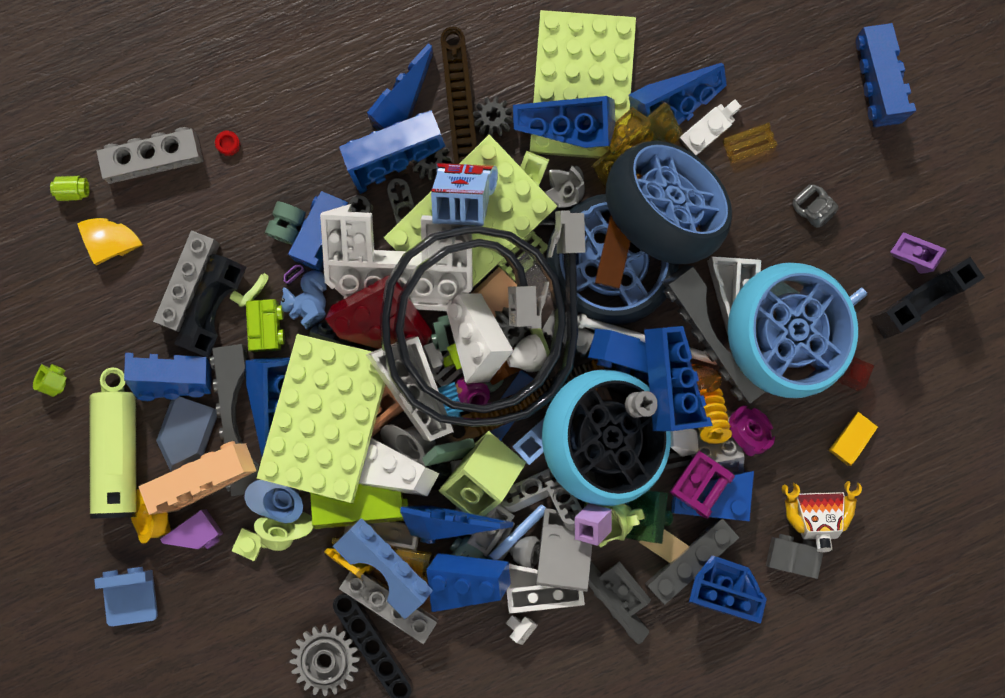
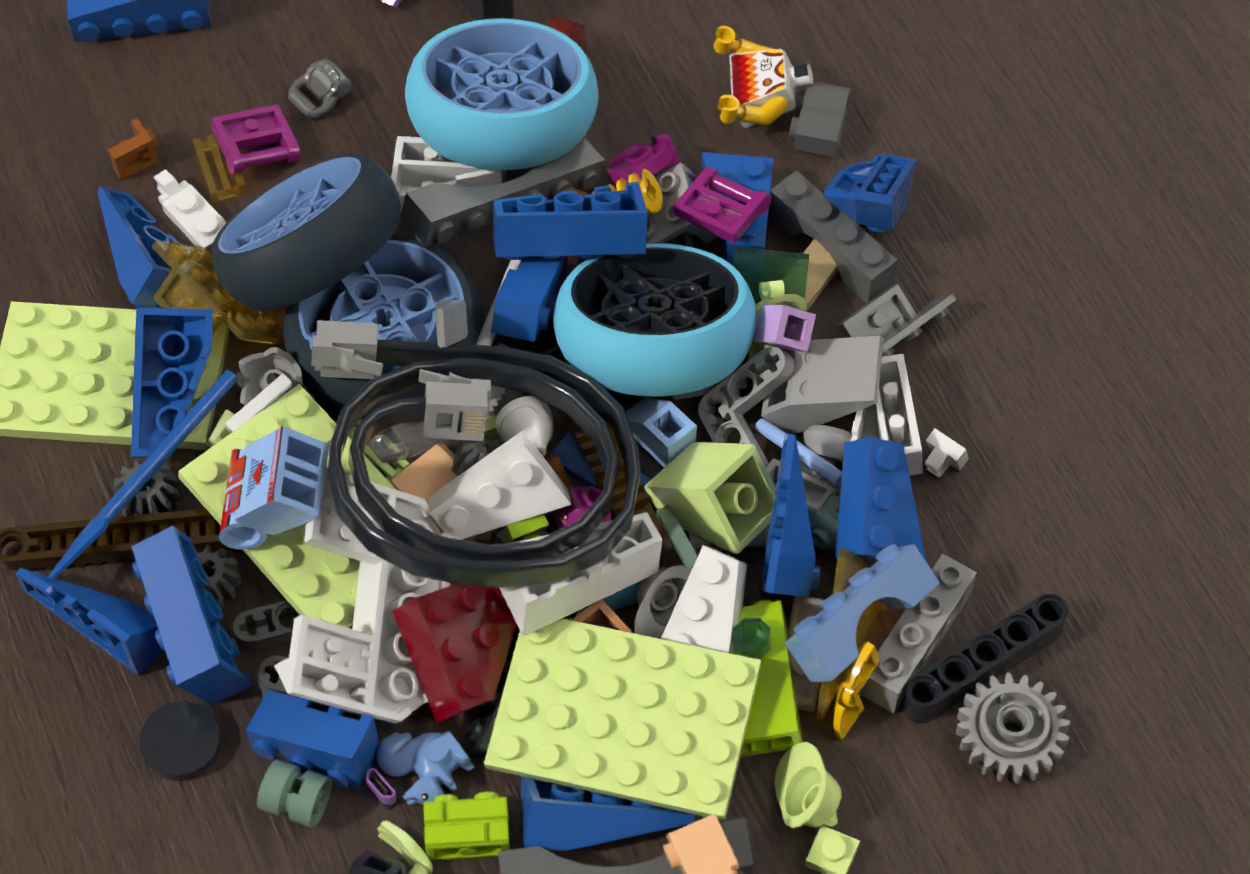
camera: 90 degrees left, 25 degrees down
(274, 501) = (760, 797): medium blue piece -> none
(322, 153) = (180, 740): none -> black tile
(373, 498) = (752, 638): none -> clear green tile
(459, 89) = (146, 471): none -> blue piece
(544, 181) = (265, 398): none -> white tile
(589, 300) = (450, 322): none -> light grey slope
(612, 257) = (375, 303): reddish brown tile -> none
(637, 399) = (606, 260): light grey wheel -> none
(684, 441) = (663, 232): white slope -> none
(755, 84) = (135, 153): none -> dark orange bracket
(774, 160) = (254, 129): none -> magenta plate
(853, 439) = (656, 54): yellow slope -> none

